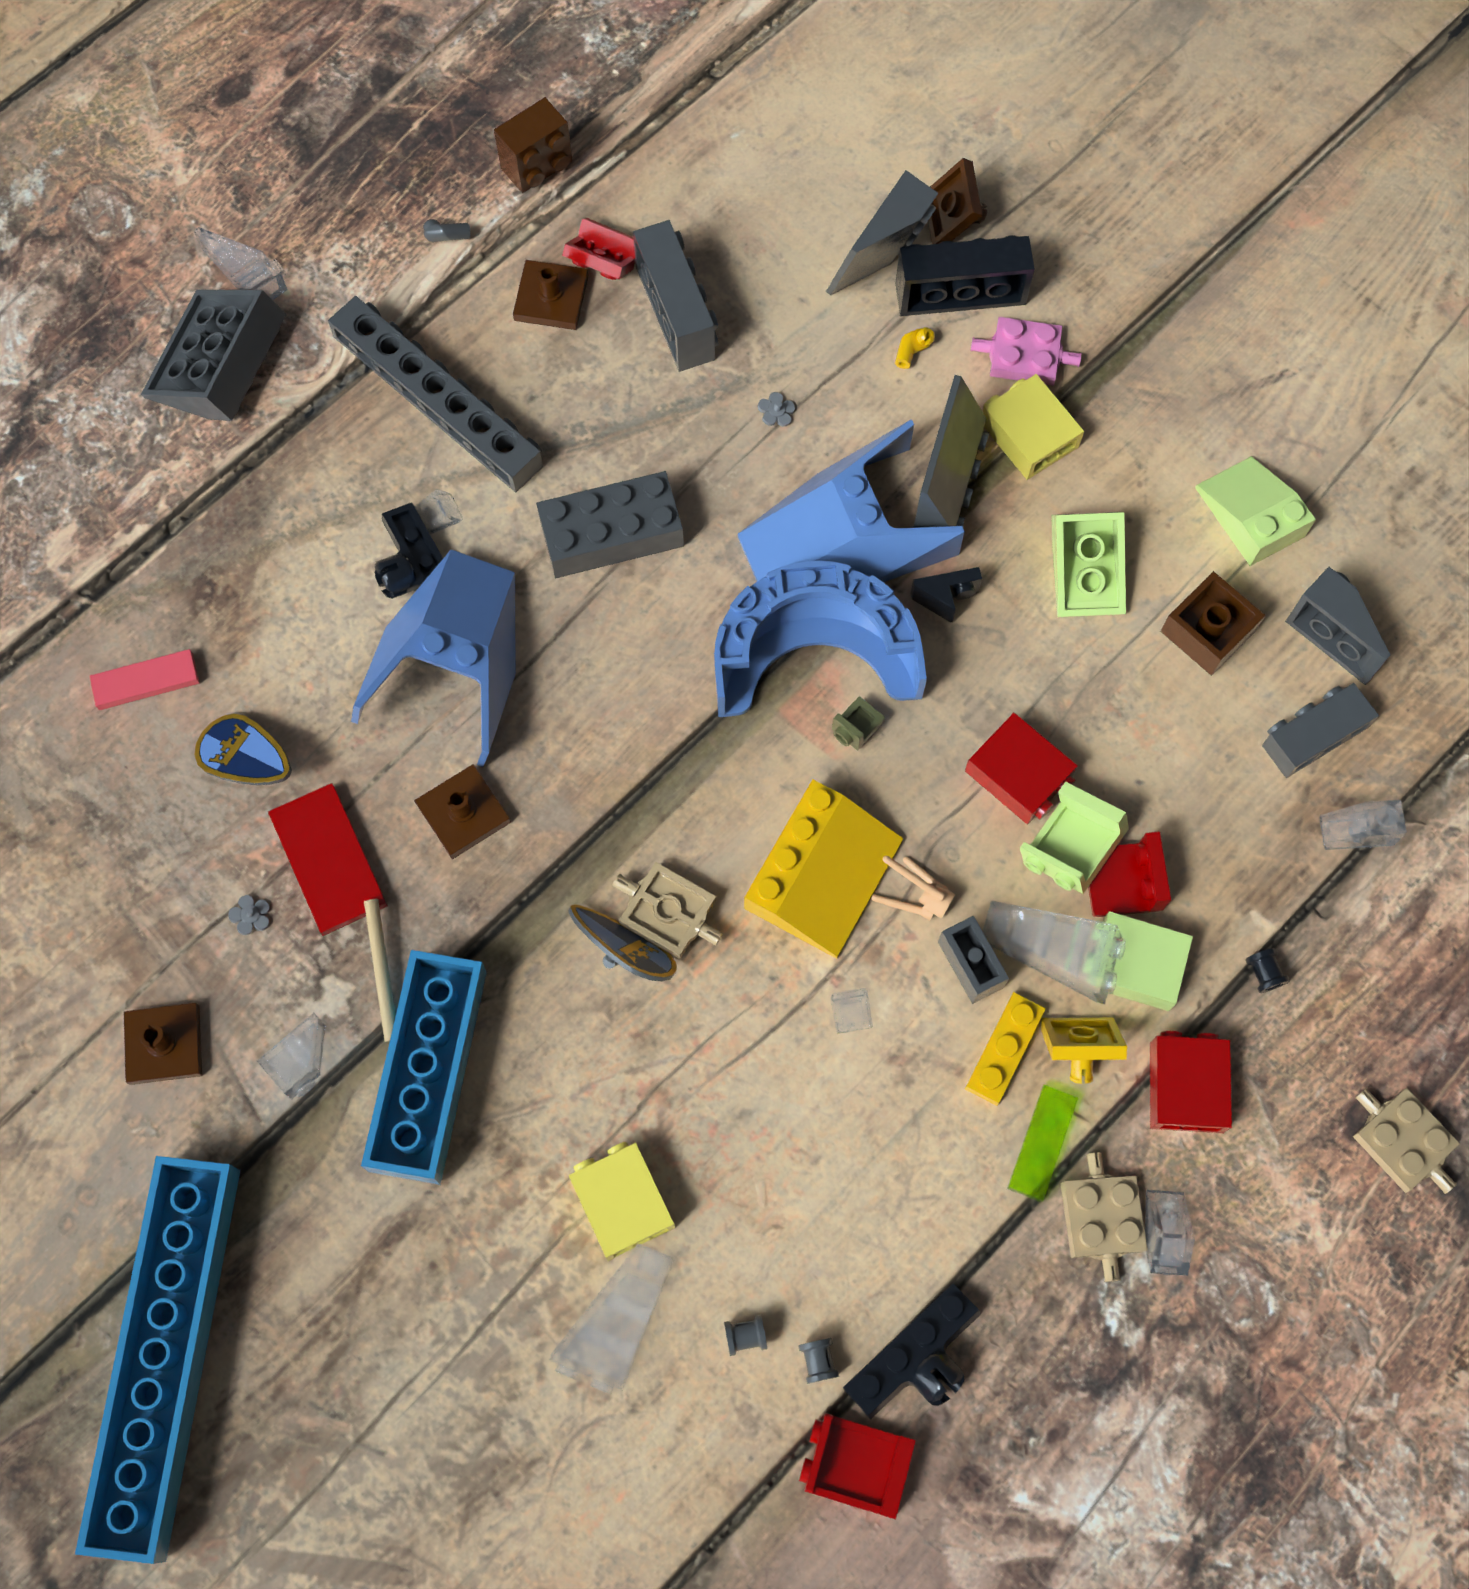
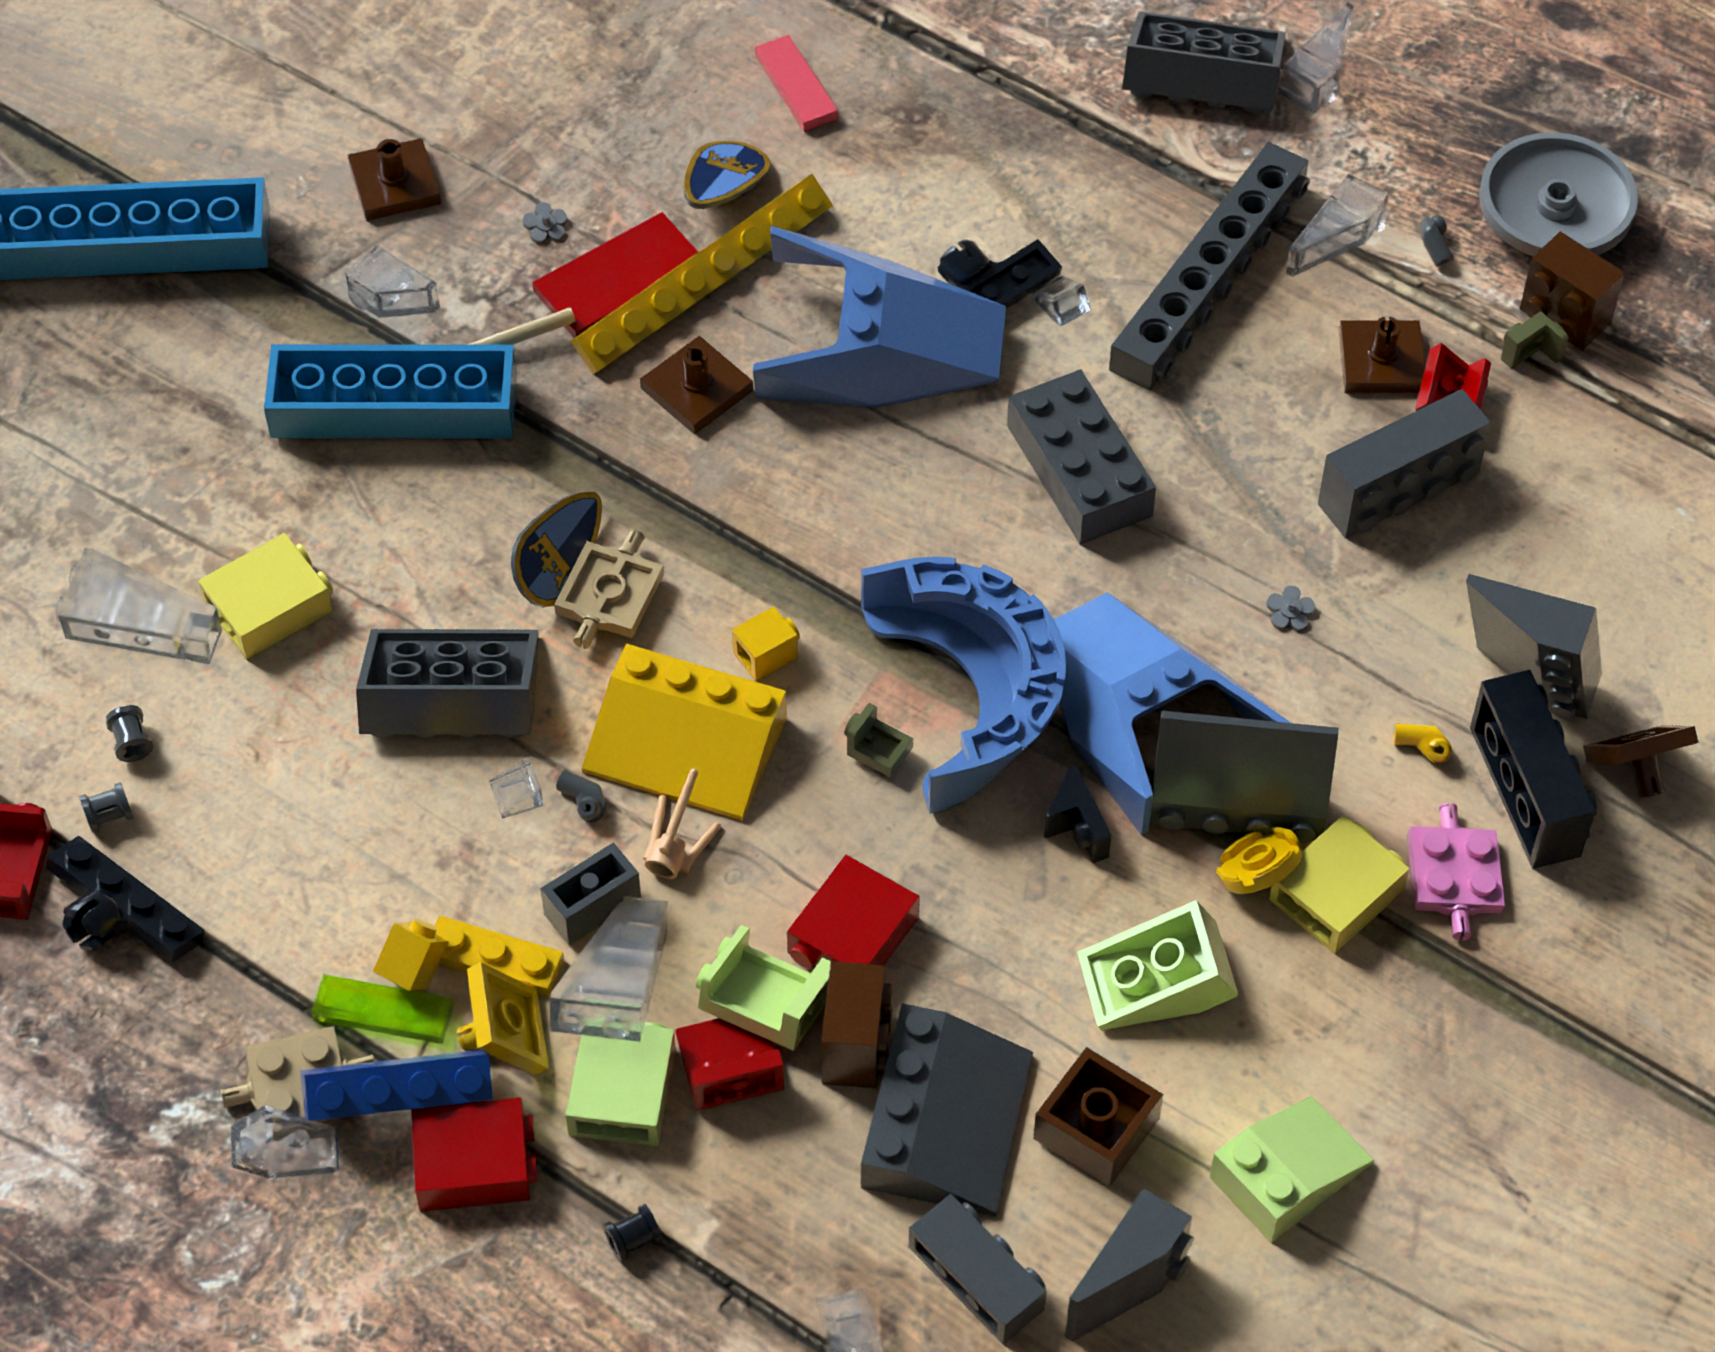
camera: 80 degrees right, 15 degrees down
(347, 788) = (699, 275): none -> yellow plate
(410, 284) = (1340, 225): none -> clear slope
(433, 134) = (1555, 186): none -> light grey dish
(561, 183) = (1530, 337): none -> olive bracket
(737, 1052) = (448, 682): none -> dark grey slope
(747, 792) = (765, 643): none -> yellow brick
(864, 955) = (587, 794): none -> dark grey arm
(1010, 472) = (1259, 860): none -> yellow tile
(1011, 1110) = (411, 954): none -> yellow brick
(1124, 775) = (856, 1024): none -> reddish brown brick
(1136, 1134) = (396, 1085): none -> blue brick
(1188, 733) = (945, 1111): none -> dark grey slope

